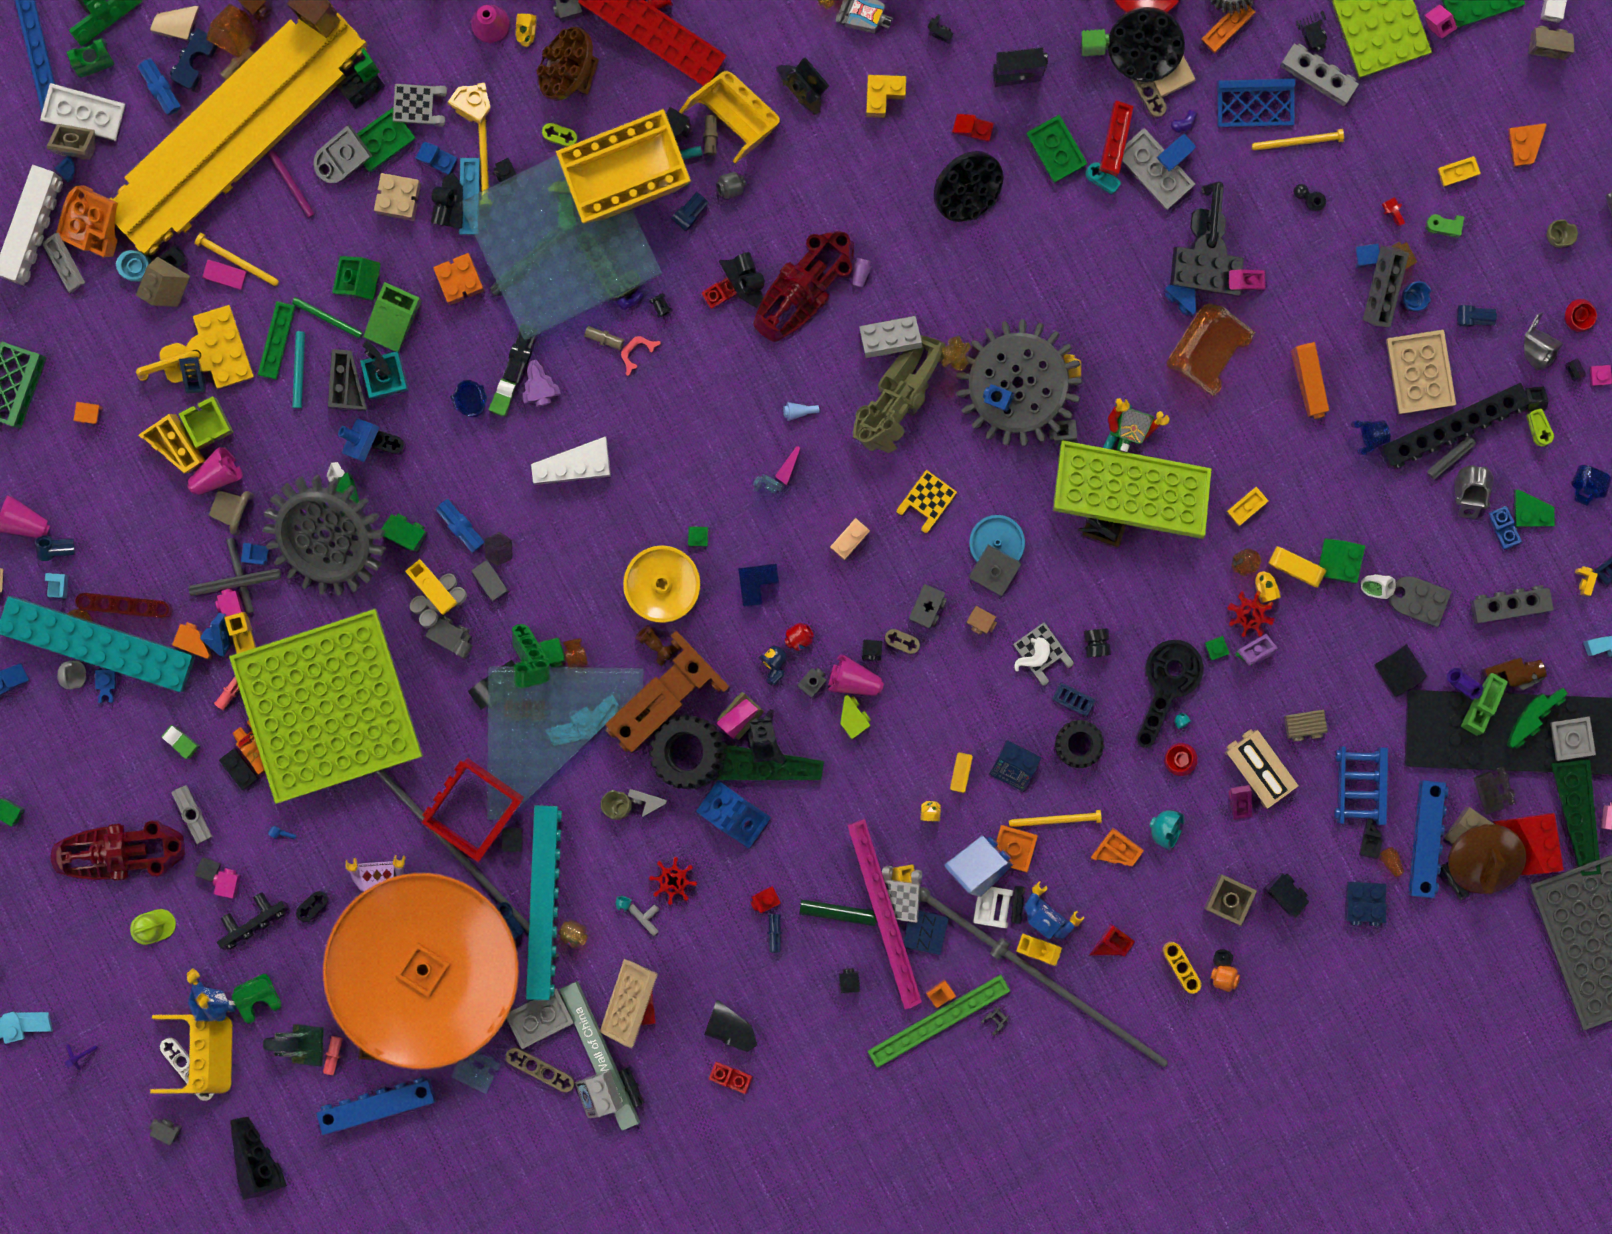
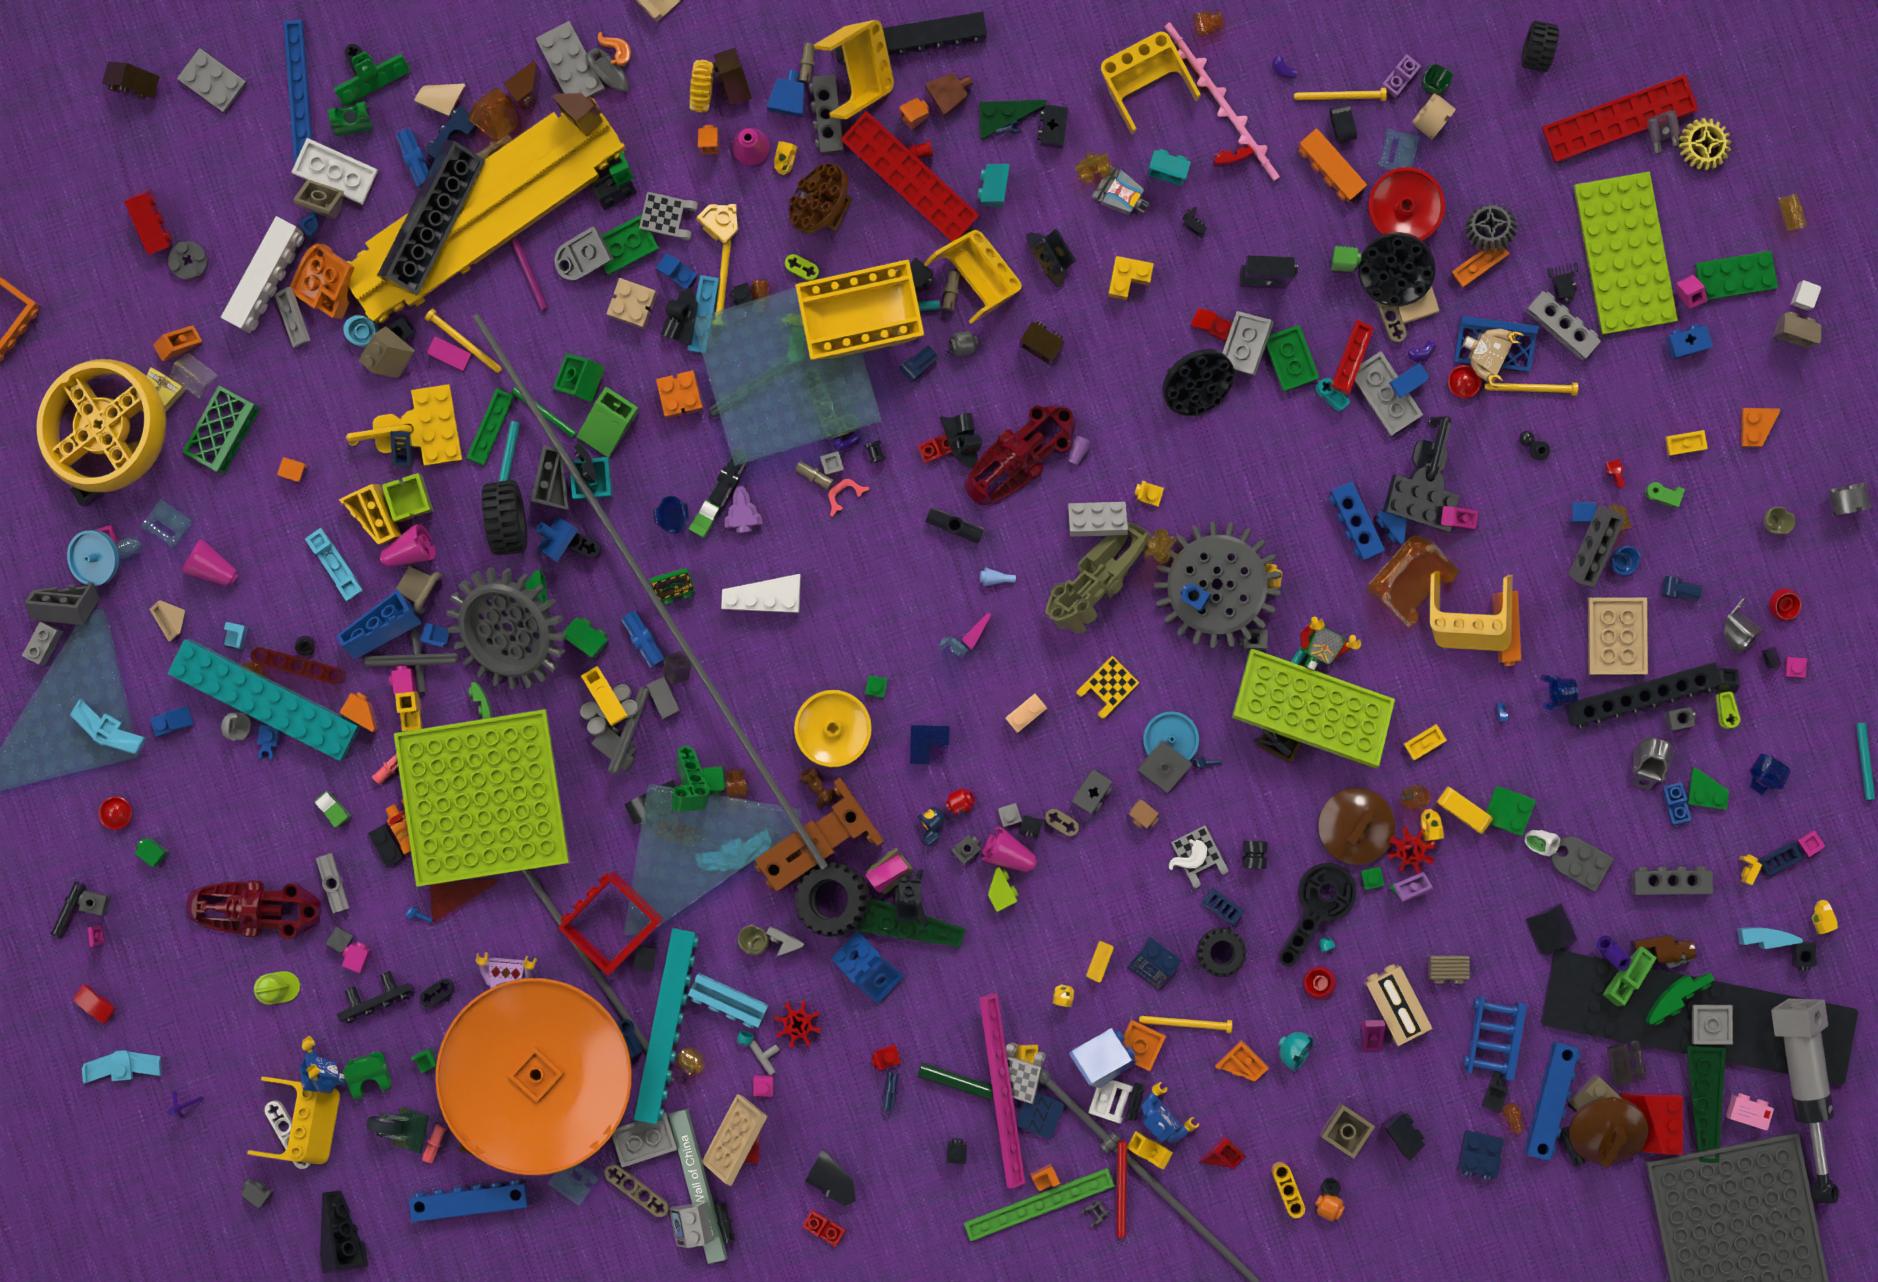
camera: 10 degrees right, 0 degrees up
(48, 548) = (232, 597): dark blue piece -> none
(127, 584) = (304, 645): none -> black tile
(144, 500) = (334, 564): none -> medium azure slope
(185, 142) = (431, 217): none -> black slope
(197, 553) = (379, 625): none -> blue wedge
(217, 635) = (385, 710): blue slope -> none
(305, 426) = (504, 517): none -> black tyre
(306, 607) = (478, 694): none -> bright green slope
(310, 808) = (450, 895): none -> clear red wing
(311, 974) = (426, 1059): none -> green panel
(335, 472) = (527, 567): white plate -> none
(448, 23) = (708, 140): none -> orange slope
(460, 477) = (650, 592): none -> dark grey piece
(460, 620) = (627, 733): none -> dark grey axle
(482, 468) = (673, 585): none -> slope
(521, 162) = (760, 288): none -> clear orange cone
(600, 868) = (728, 1000): none -> medium azure brick
(619, 323) = (832, 463): none -> light grey plate
(648, 947) = (763, 1086): none -> dark pink plate
(737, 24) = (994, 185): none -> teal slope
(763, 368) = (942, 520): none -> black piece
(808, 171) = (1042, 342): none -> dark brown brick
(849, 642) = (1009, 814): none -> light grey plate
(937, 304) = (1148, 493): none -> yellow bracket
(1010, 139) = (1247, 342): none -> light grey plate
(1017, 992) = (1121, 1189): none -> red piece
(1030, 561) = (1200, 762): none -> dark blue hand
(1134, 272) = (1349, 492): none -> blue brick
(1193, 599) = (1356, 826): none -> reddish brown bracket
(1231, 145) = (1464, 381): none -> red hat
(1251, 112) = (1489, 352): none -> tan torso
(1276, 387) = (1471, 630): none -> yellow windscreen
(1318, 466) = (1500, 710): none -> blue tile
(1438, 79) = (1700, 341): none -> blue brick
(1451, 457) = (1634, 725): dark grey axle -> none
(1489, 449) = (1672, 718): none -> dark grey brick

